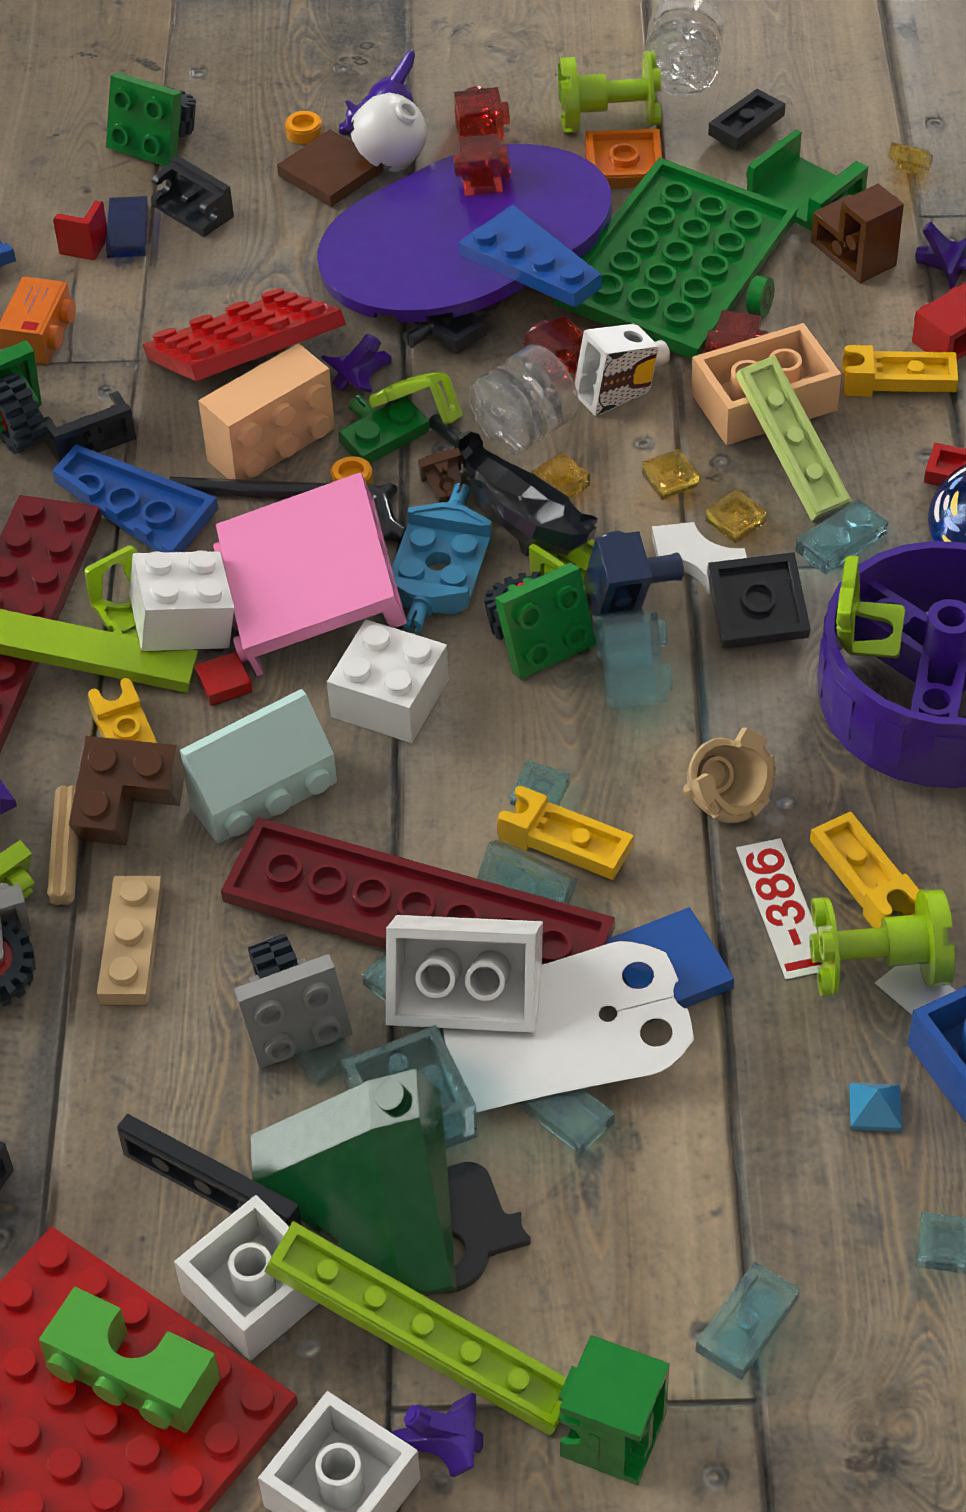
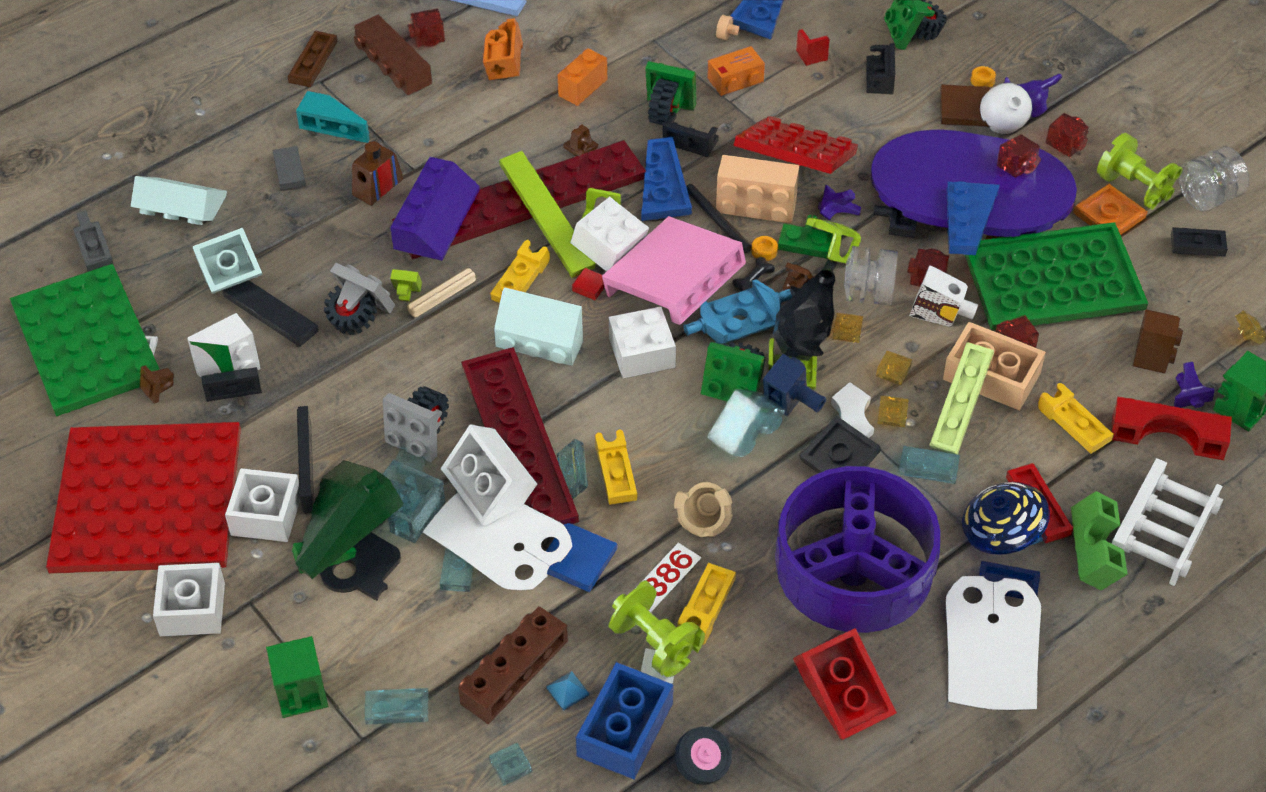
camera: 50 degrees right, 0 degrees up
(116, 775) = (476, 283): reddish brown brick -> none
(127, 227) = (838, 61): clear blue tile -> none
(130, 940) = (412, 350): tan plate -> none
(164, 1385) = (185, 507): bright green arch -> none
(418, 1327) = (281, 567): lime tile -> none
(445, 1435) = (245, 626): dark purple piece -> none
(542, 780) = (639, 442): clear light blue tile -> none
(760, 296) = (1064, 327): green tile -> none
(793, 1140) = (512, 664): none -> copper brick
(799, 183) = (1176, 291): green panel -> none
(850, 606) = (837, 472): lime piece -> none

